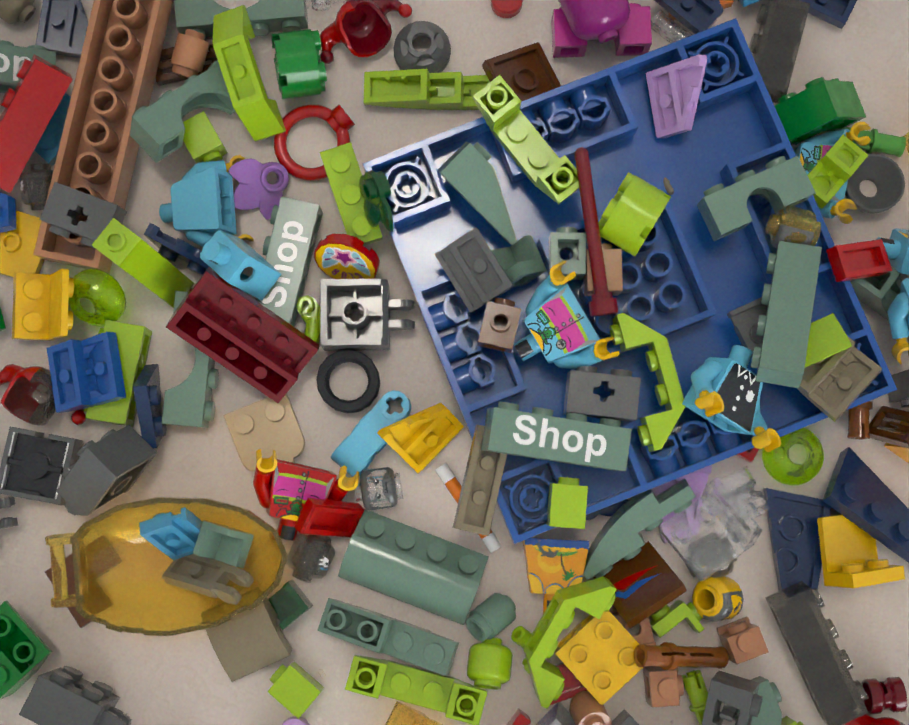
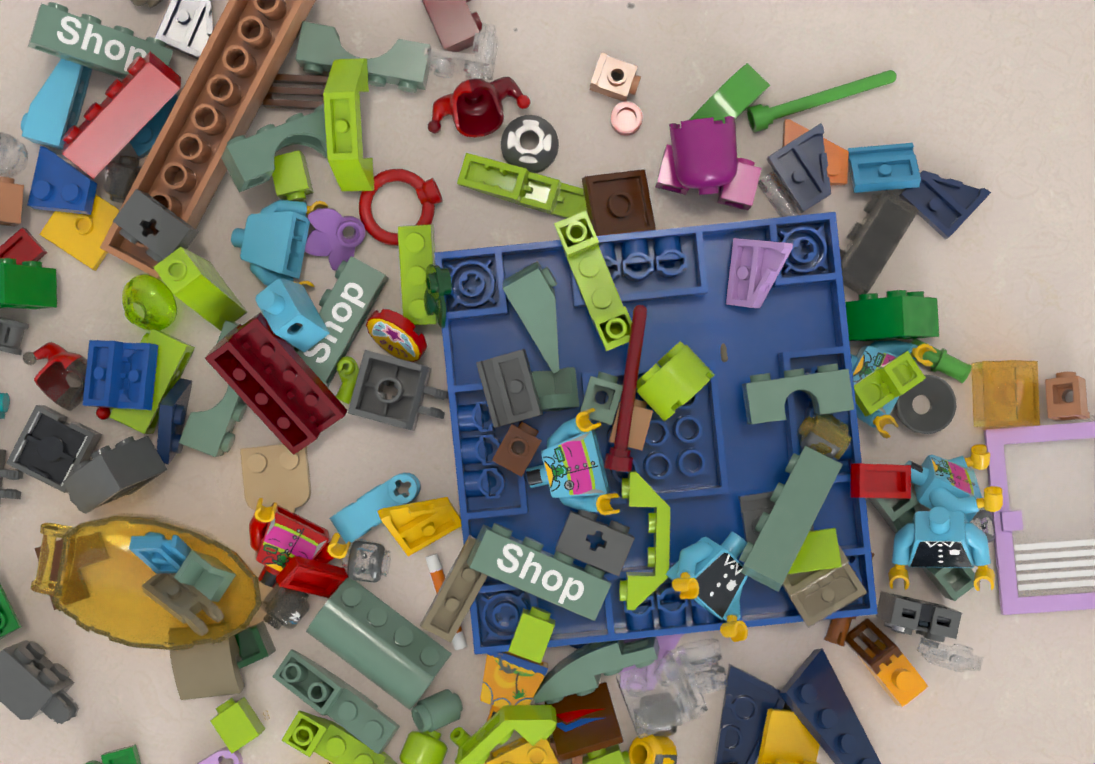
camera: 20 degrees right, 5 degrees up
(42, 305) = (96, 296): yellow bracket -> none
(176, 248) = (236, 276): dark blue wing -> none
(189, 53) = (301, 89): nougat brick -> none
(297, 63) = (403, 127): green brick -> none
(329, 365) = (346, 464): black tyre -> none
(783, 469) = (756, 656): clear neon green piece -> none

